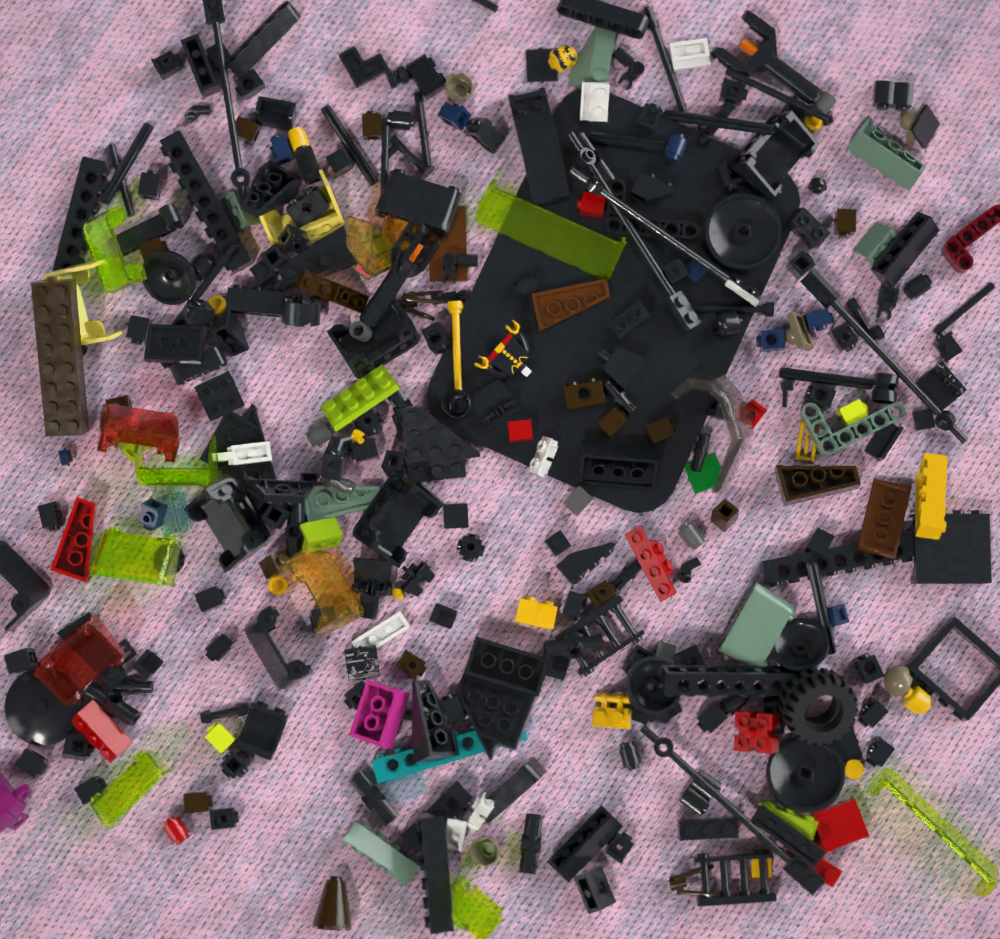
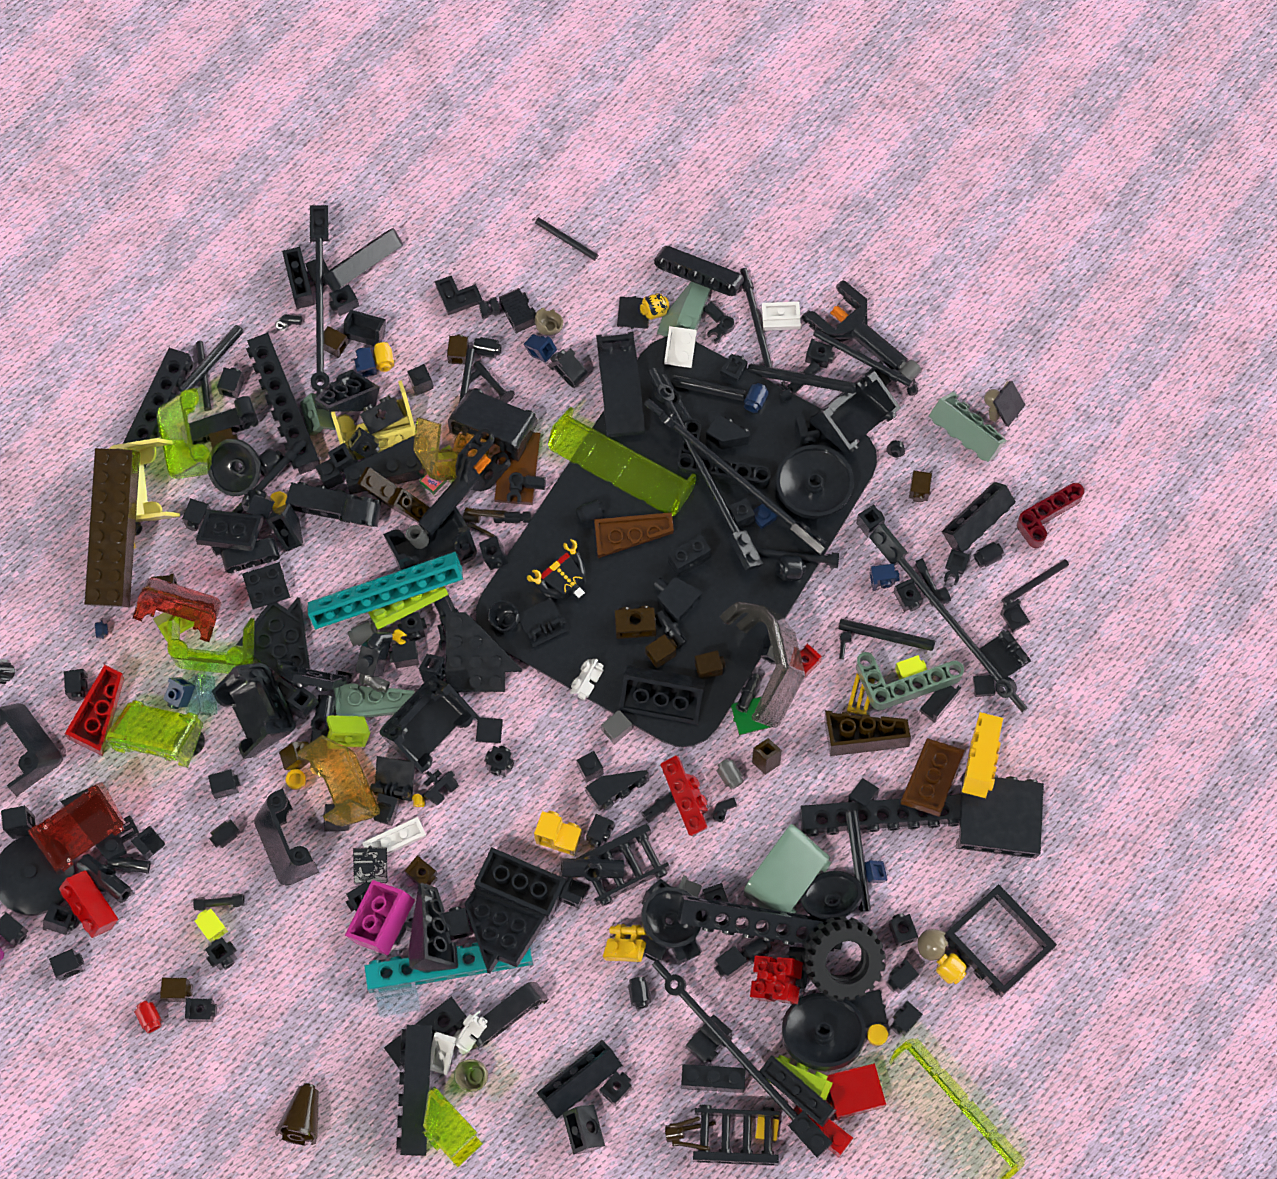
camera: 10 degrees right, 15 degrees down
(129, 788) = (104, 961): clear neon green windscreen -> none
(167, 70) = (266, 275): black brick -> none
(247, 453) = (284, 643): white hinge -> none
(262, 730) = (256, 923): black panel -> none
(307, 164) = (388, 374): black slope -> none
(337, 391) = (385, 590): none -> teal brick
(349, 145) = (433, 366): black axle -> none
(373, 798) = (361, 1007): black piece -> none
(381, 852) = (360, 1064): sand green wedge -> none
(422, 129) = (507, 358): black bar -> none
(443, 616) = (461, 827): black panel -> none
(455, 309) = (516, 527): yellow piece -> none
(520, 431) = (565, 650): red panel -> none
(530, 843) = (521, 1074): black piece -> none
(591, 205) = (665, 442): red brick -> none
(595, 597) = (623, 826): dark brown brick -> none
(777, 335) = (839, 585): dark blue brick -> none
(798, 332) = (862, 585): dark tan tile -> none
(807, 228) = (881, 486): black brick -> none
(812, 124) = (897, 390): yellow tile -> none
(828, 394) = (886, 646): black brick -> none
(875, 242) = (949, 508): sand green panel -> none
(885, 388) = (946, 648): black wheel -> none
(892, 95) = (979, 372): black brick -> none

